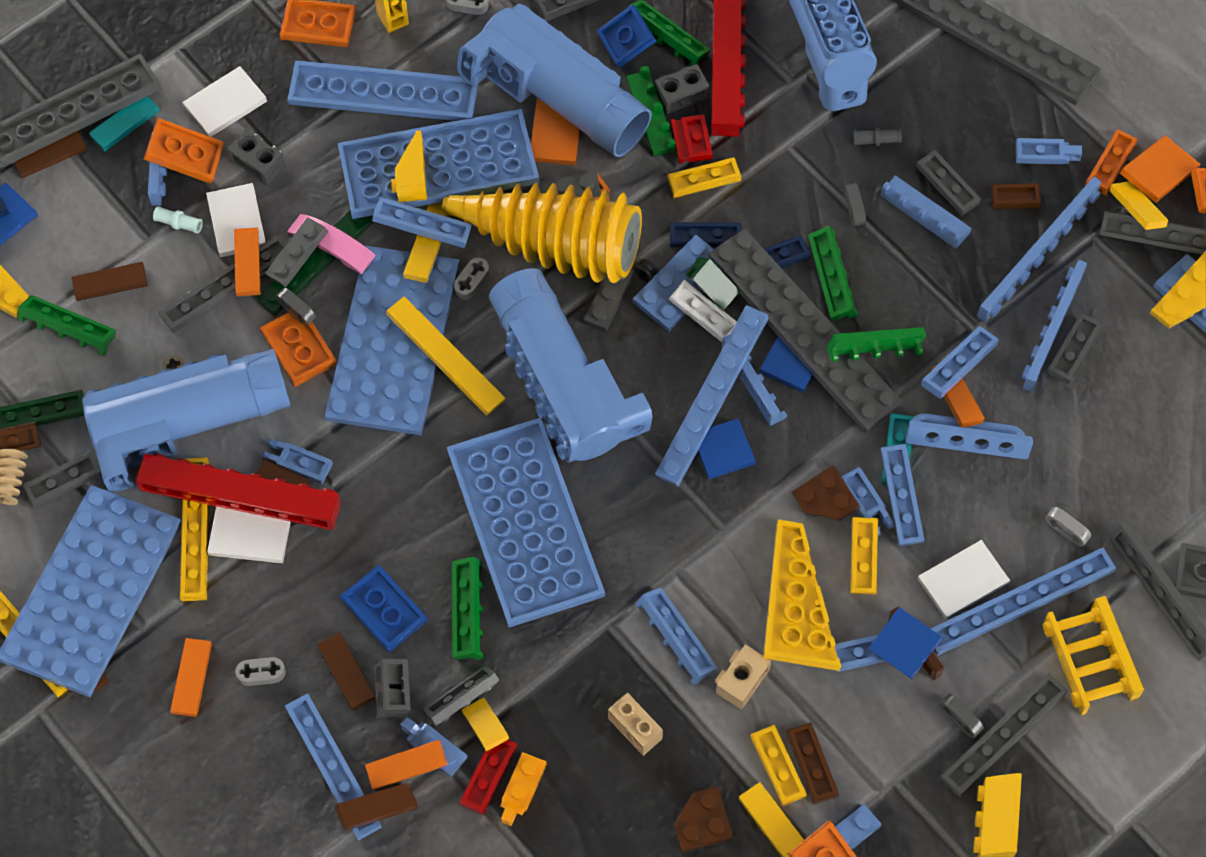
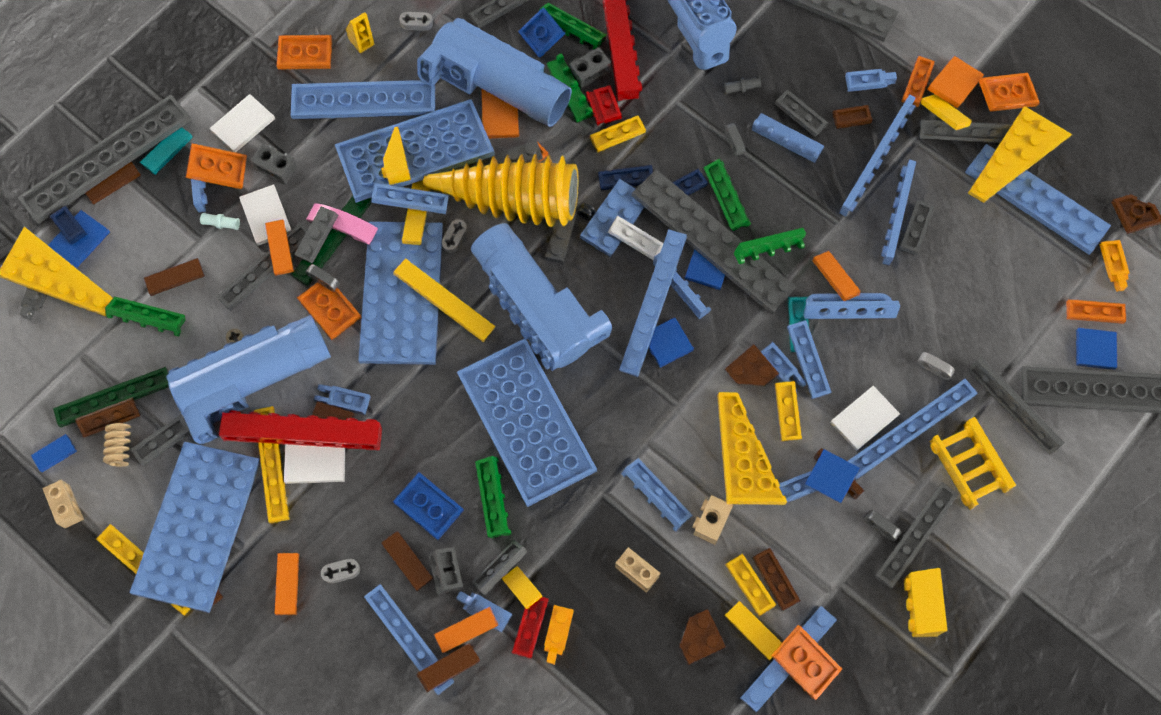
camera: 10 degrees left, 5 degrees up
(712, 282) = (639, 214): hinge -> none
(959, 362) = (834, 250): medium blue plate -> none

